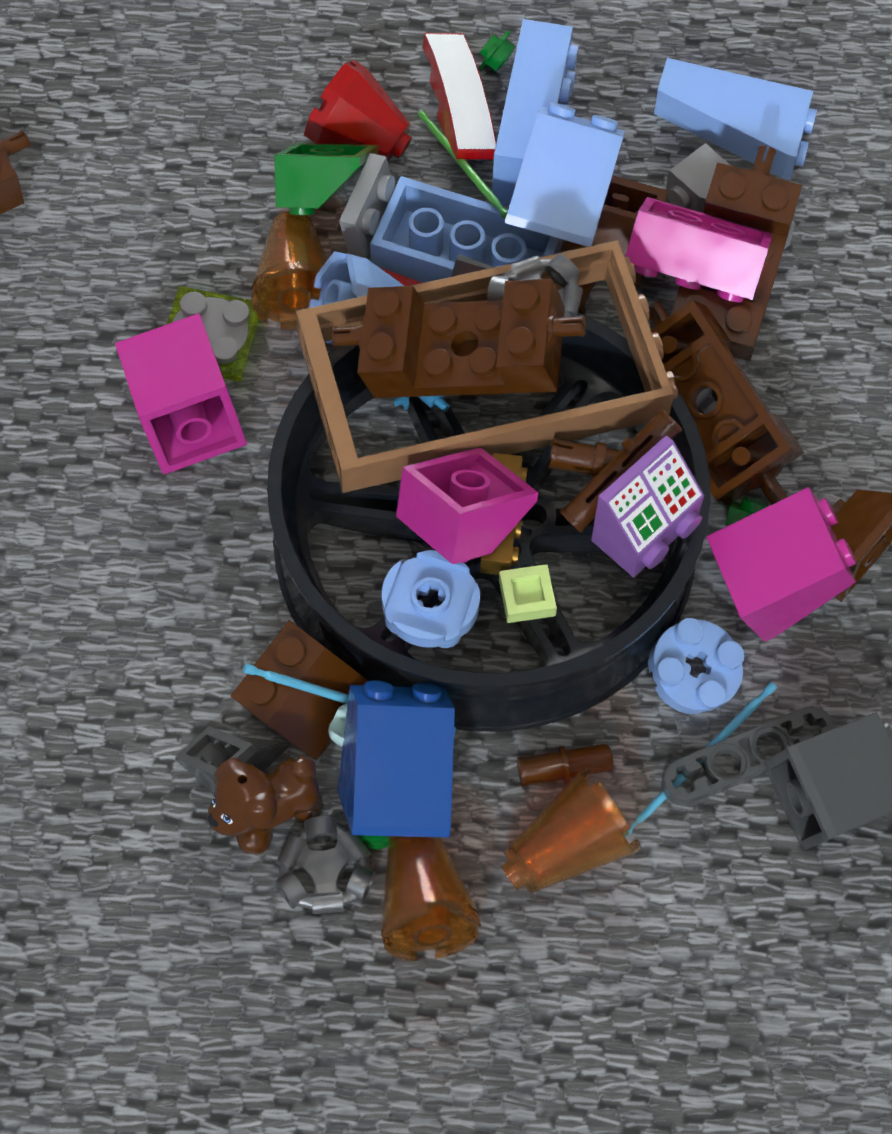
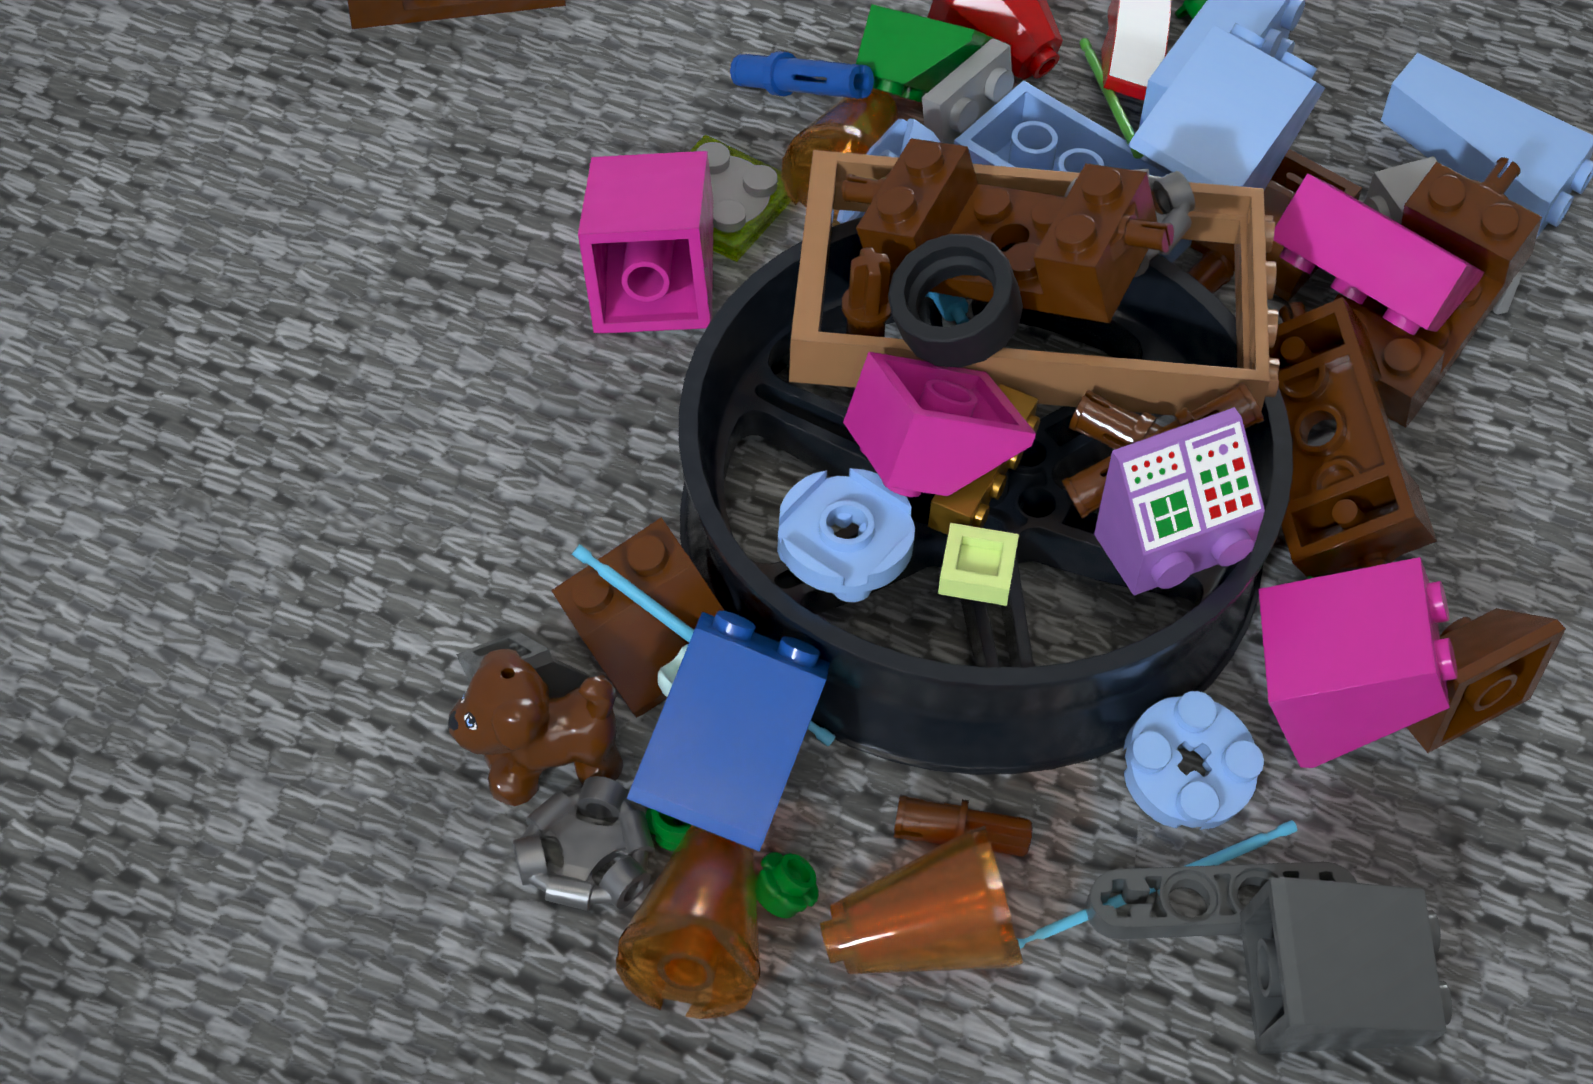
camera: 20 degrees right, 10 degrees down
(219, 219) = (784, 74): none -> blue pin
(382, 422) = (867, 298): none -> reddish brown axle
(430, 379) = (942, 260): none -> black tyre
(467, 847) = (786, 884): none -> green plate

